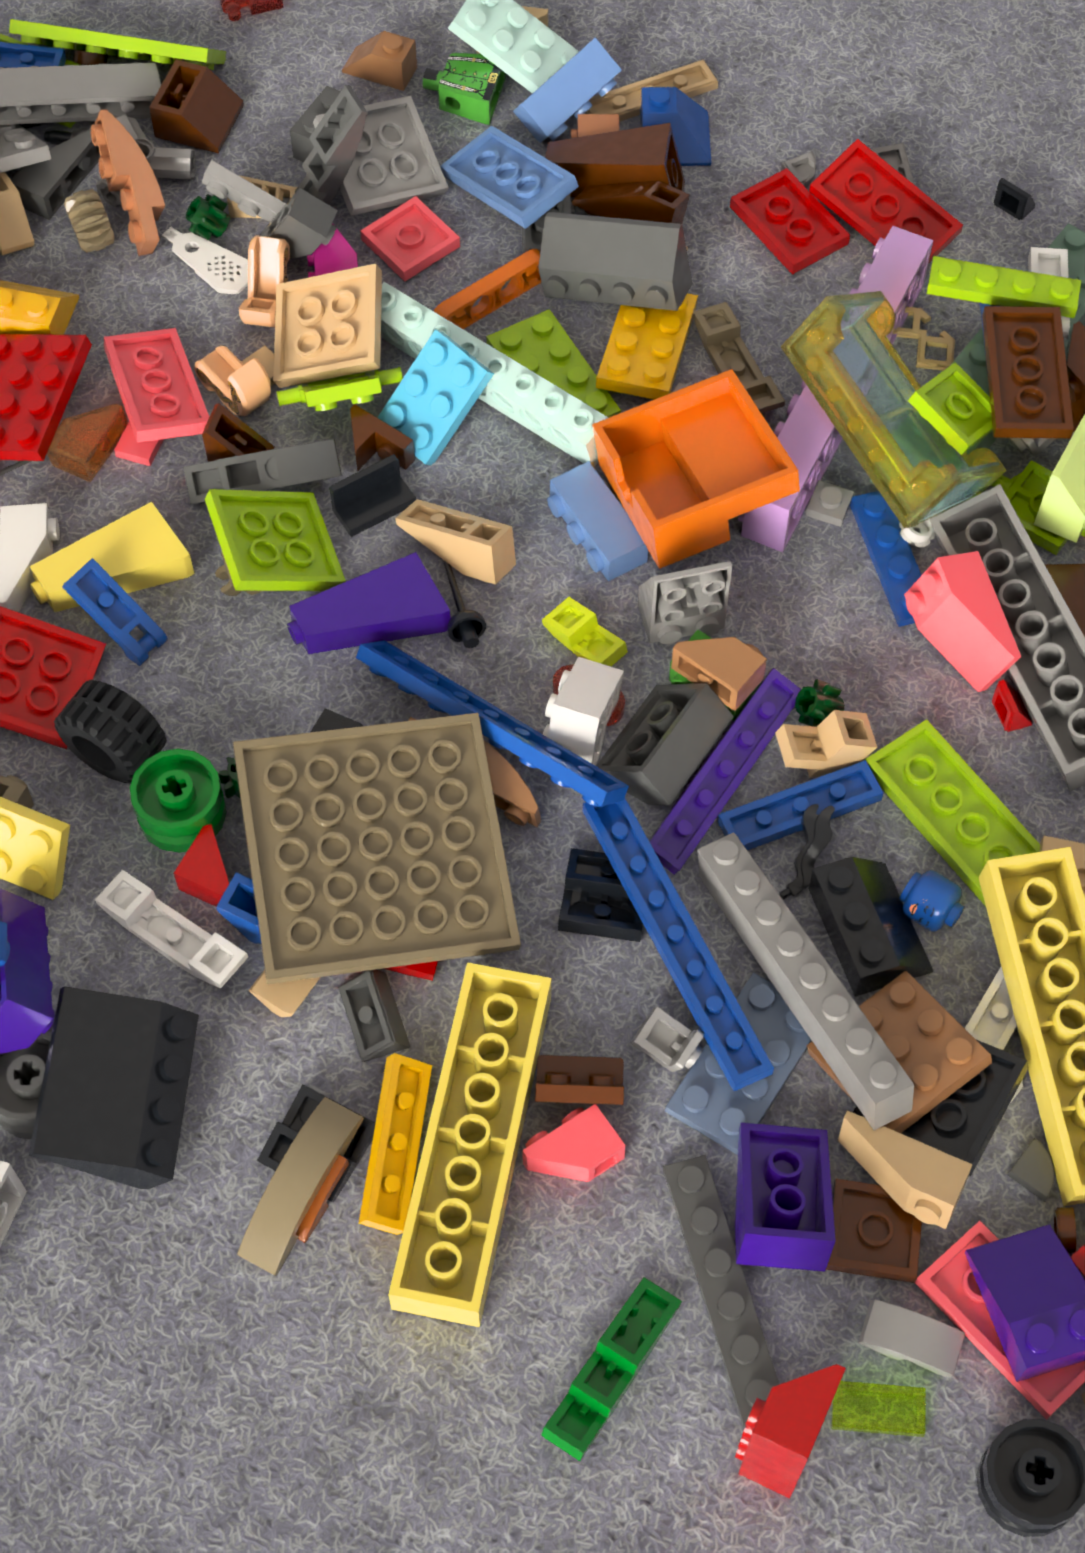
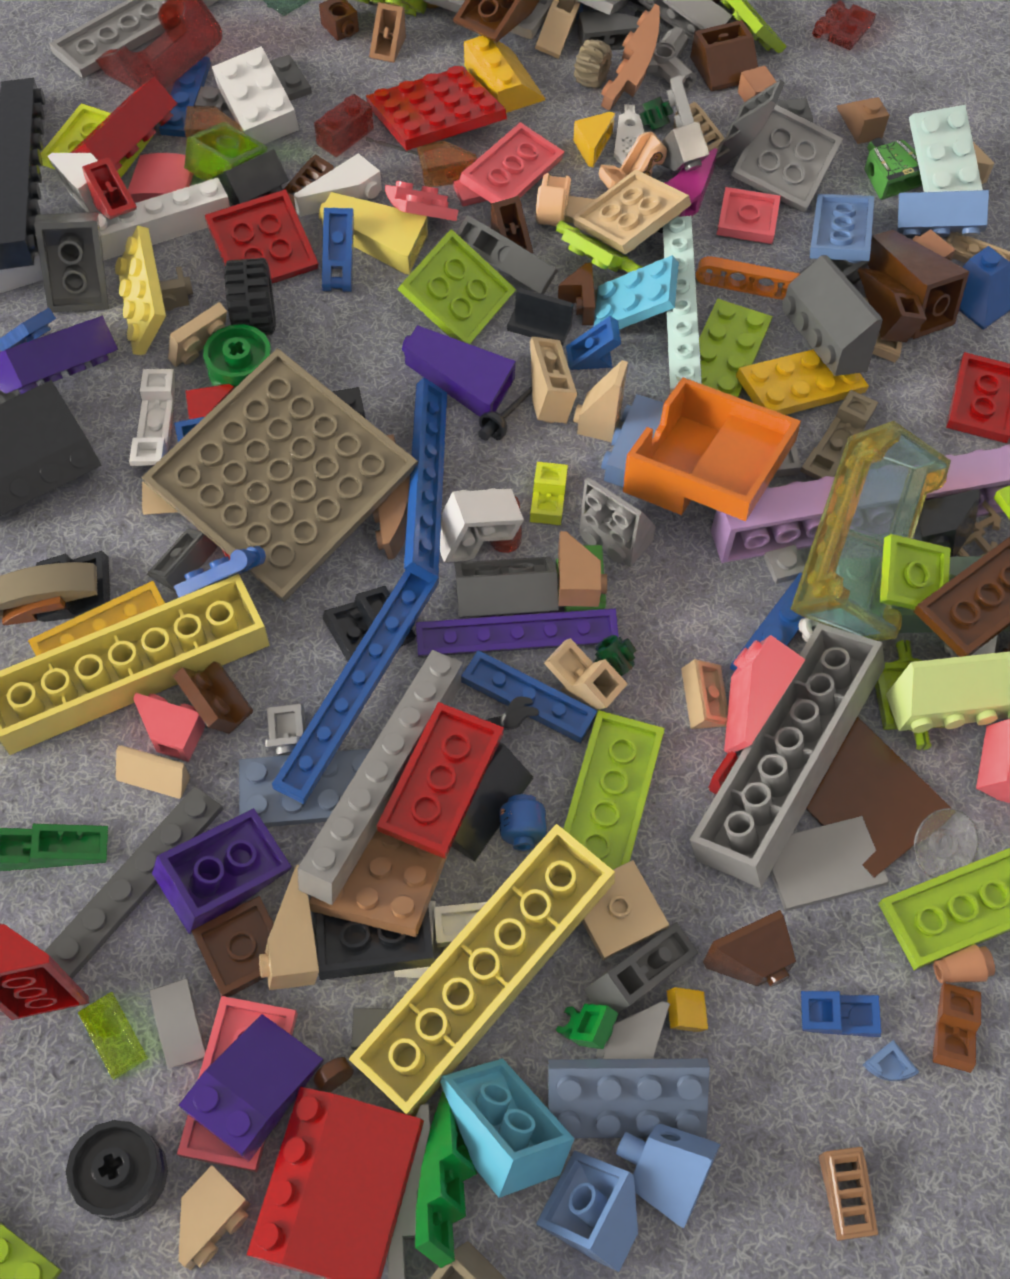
camera: 50 degrees right, 0 degrees up
(109, 818) = (192, 336): none -> tan plate
(124, 495) = (423, 202): none -> coral slope
(181, 292) = (592, 135): none -> yellow slope
(262, 113) = (754, 82): none -> nougat brick
(446, 981) = (223, 568): none -> plate
(453, 472) = (594, 346): none -> blue slope
(544, 512) = (602, 405): none -> tan slope
(616, 1197) = (151, 772): none -> tan slope
(858, 929) = (440, 780): none -> red plate
(911, 665) = (705, 694): none -> tan slope
(916, 342) = (948, 520): none -> black slope

